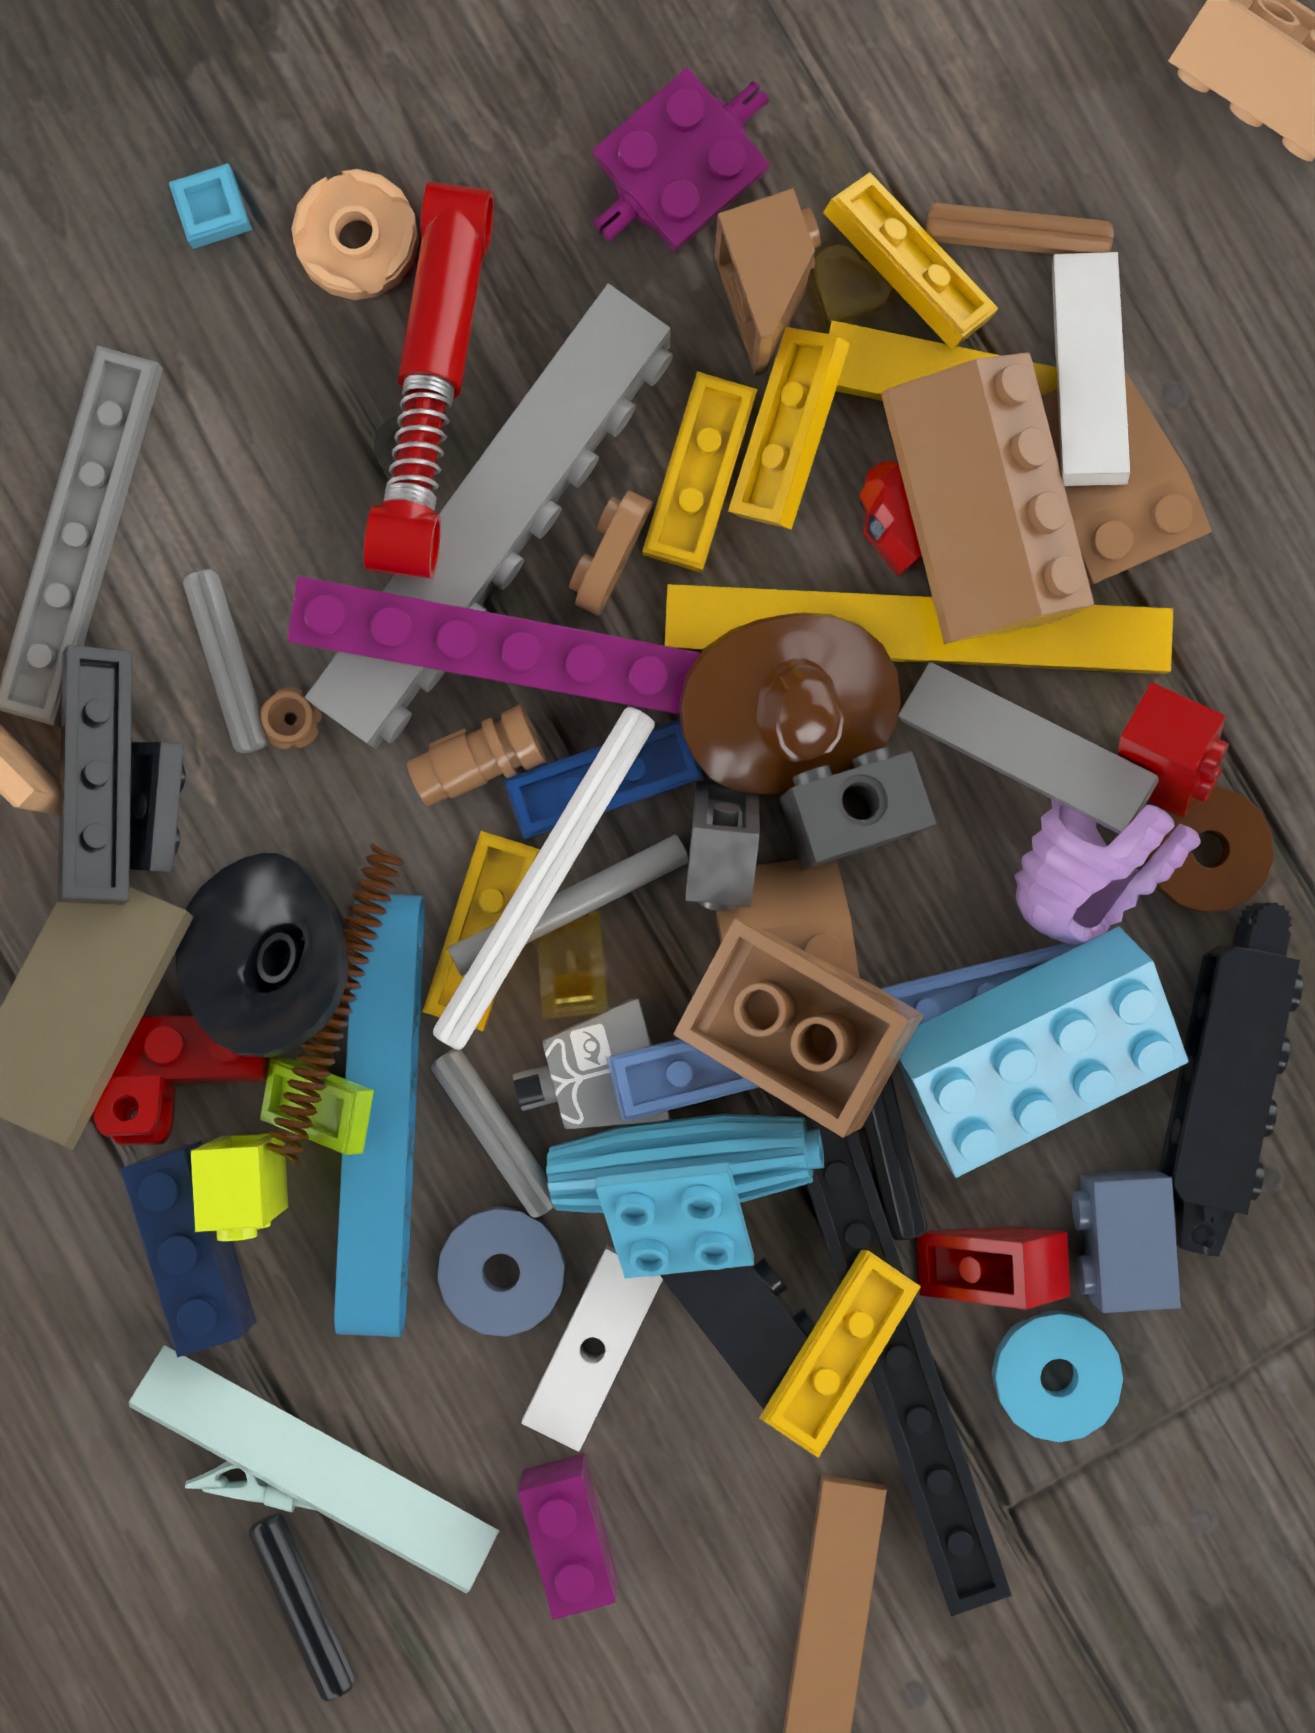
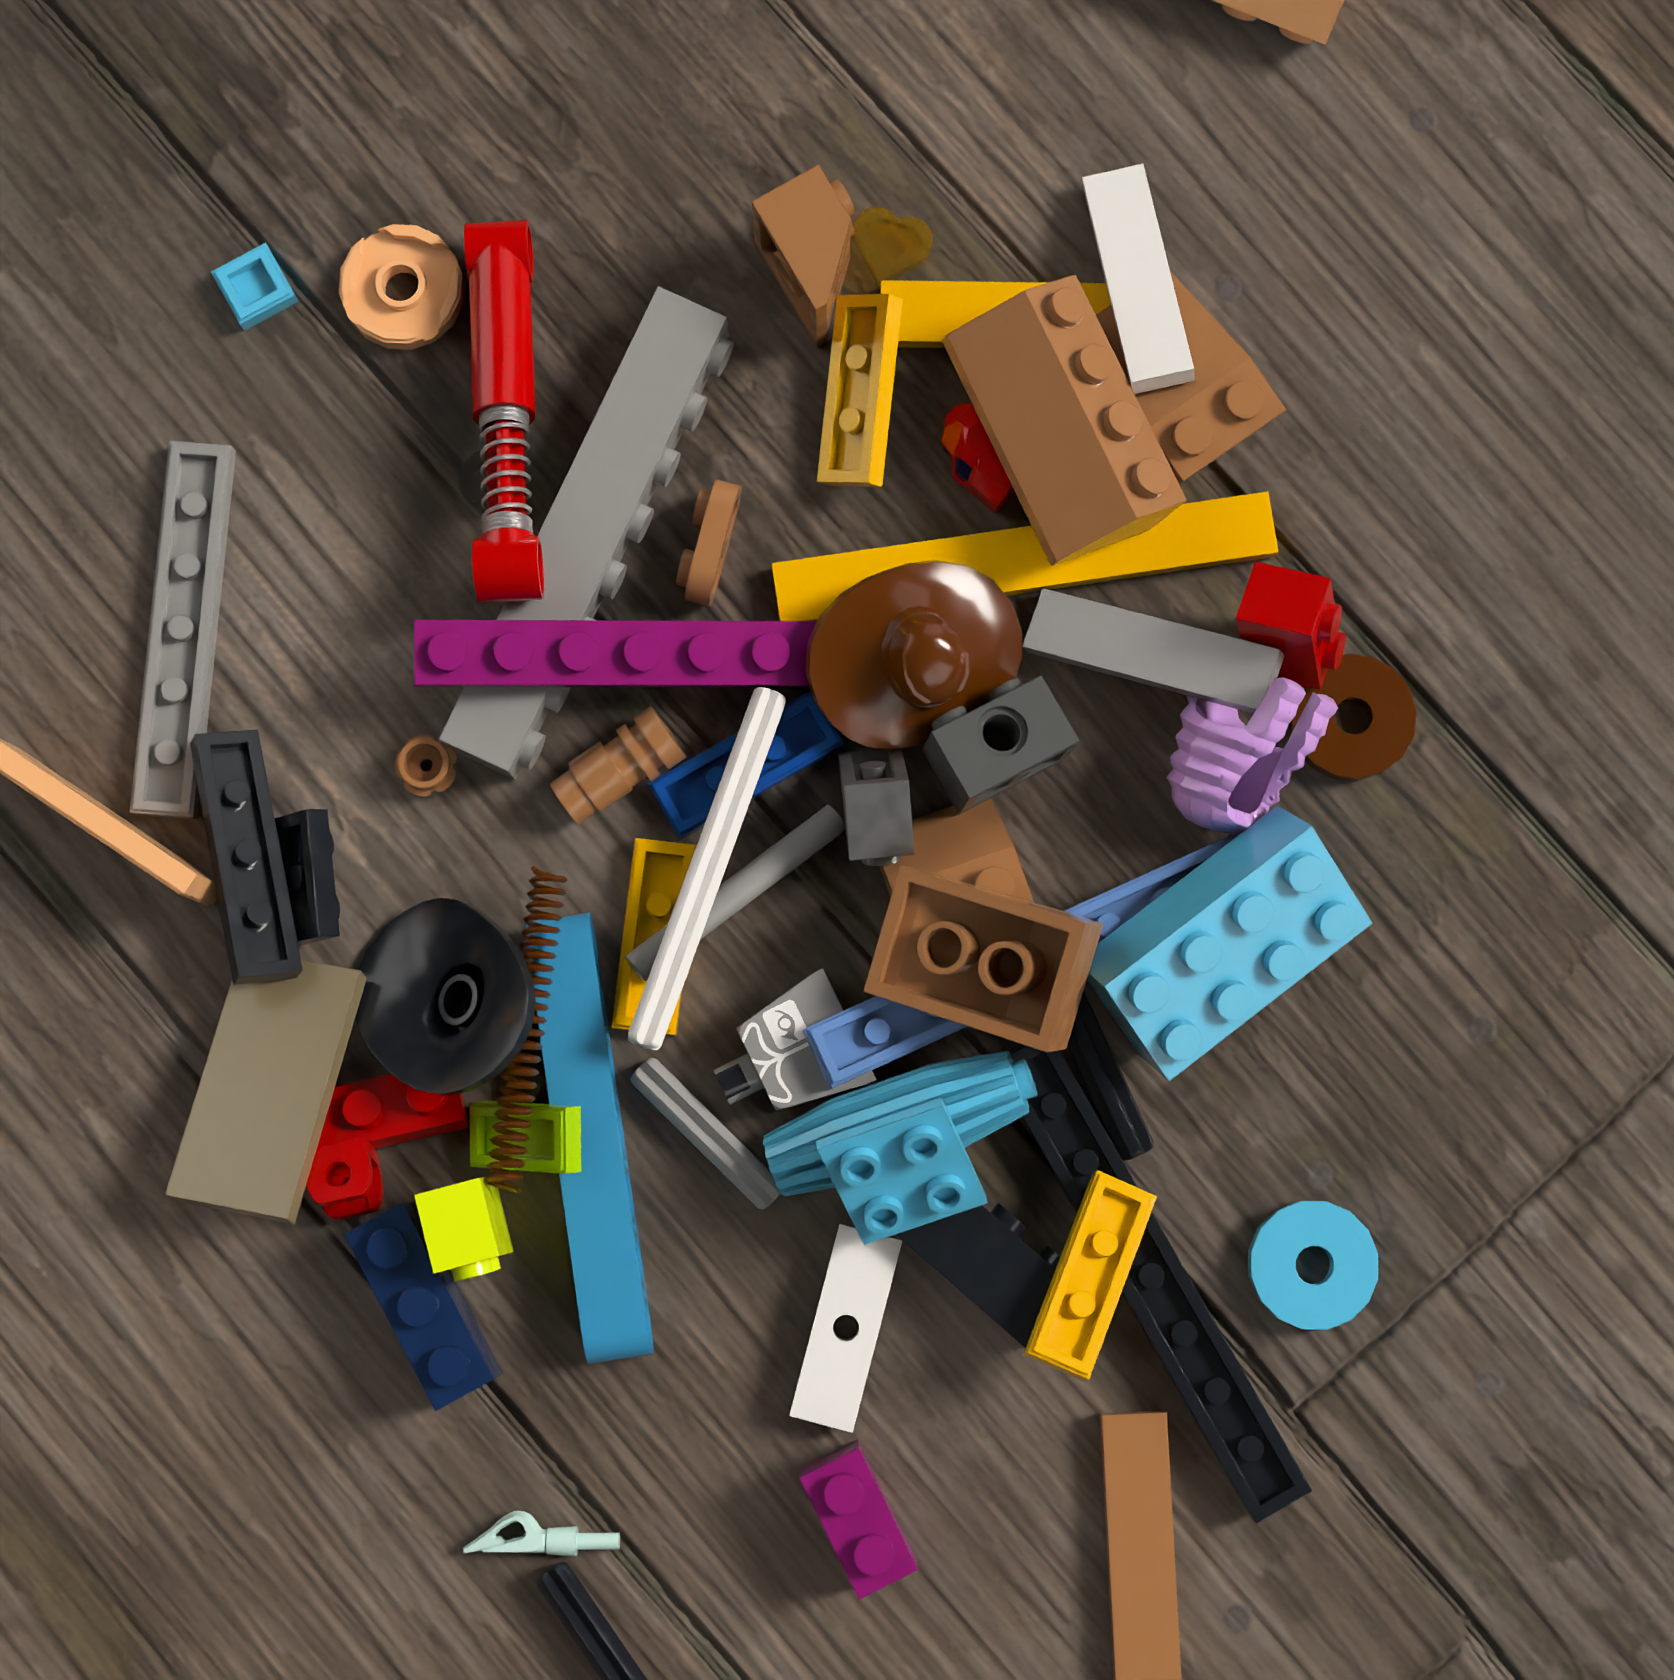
camera: 15 degrees left, 5 degrees down
(225, 660) = (352, 722): light grey axle -> none
(314, 1468) = (590, 1505): light aqua tile -> none
(495, 1308) = (731, 1309): sand blue tile -> none
(573, 969) = (753, 954): clear yellow slope -> none
(680, 160) = (704, 157): magenta plate -> none
(699, 472) = (781, 450): yellow tile -> none
(910, 260) = (945, 209): yellow tile -> none
(994, 1265) = (1226, 1164): red slope -> none
(1017, 230) = (1042, 161): medium nougat axle -> none
(1127, 1241) = (1352, 1114): sand blue brick -> none
(1228, 1085) = (1418, 935): black hinge -> none

